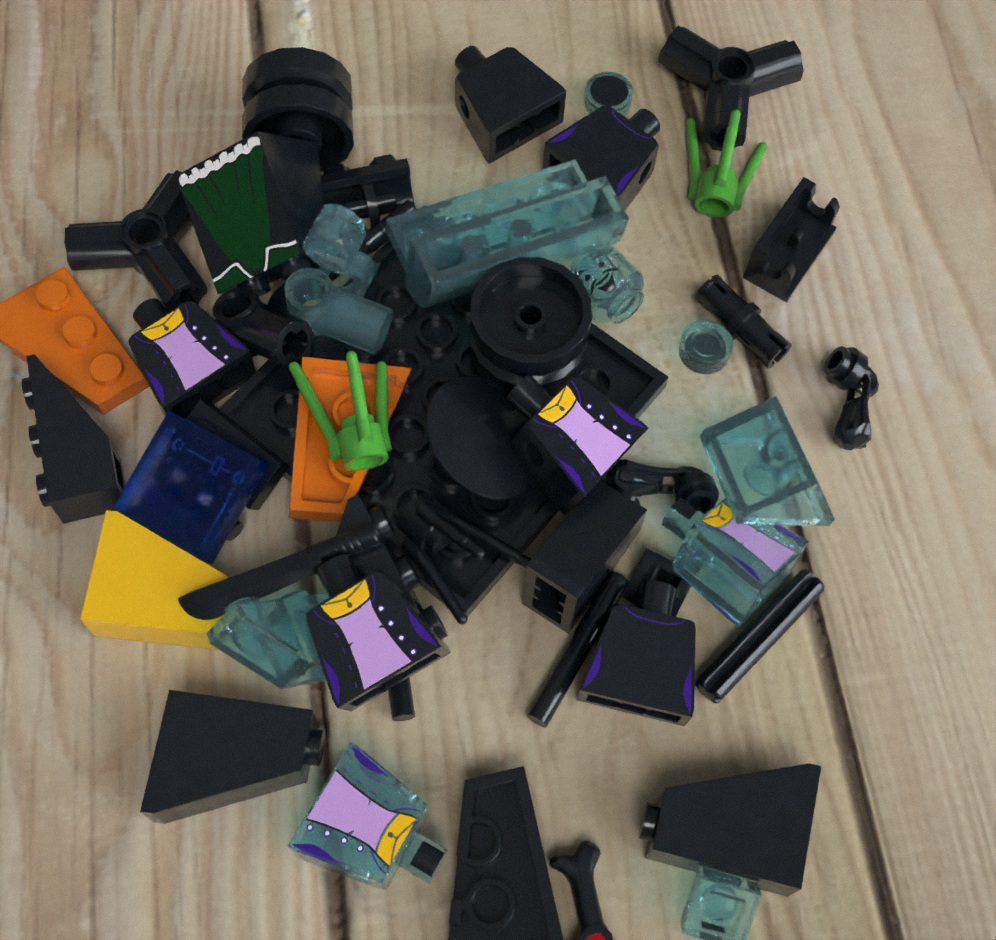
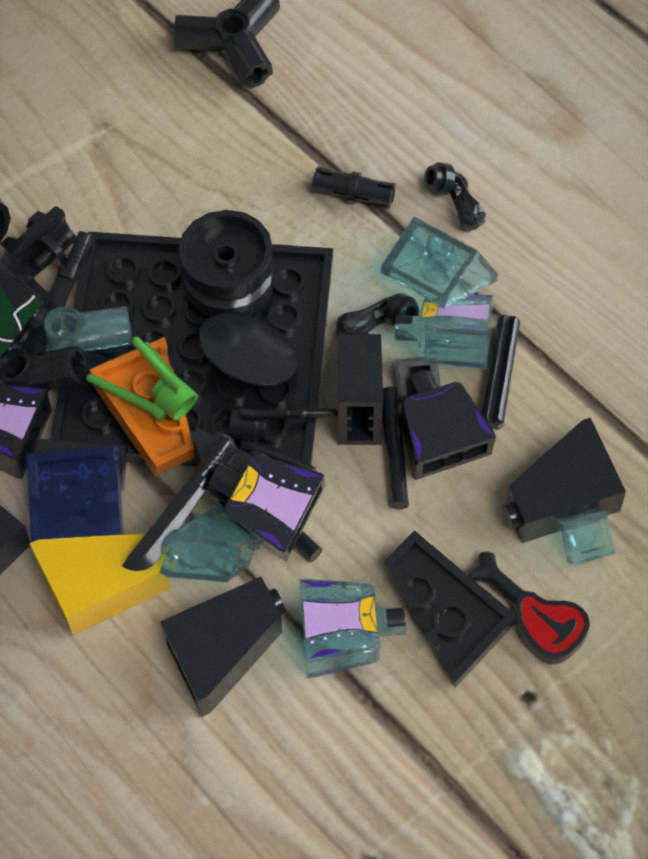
camera: 30 degrees left, 5 degrees down
(336, 244) = (62, 285): clear light blue leg -> none
(505, 100) = (88, 131): black torso -> none
(533, 215) = (147, 227): clear light blue brick -> none
(570, 437) = (304, 316): black torso -> none
(608, 90) = (156, 90): tile -> none
(609, 147) = (187, 134): black torso -> none
(611, 284) = (256, 203): clear light blue head -> none
(705, 347) = (340, 218): clear light blue tile -> none
(718, 190) = (277, 111): bright green plant -> none
(792, 242) = (351, 120): black hinge -> none

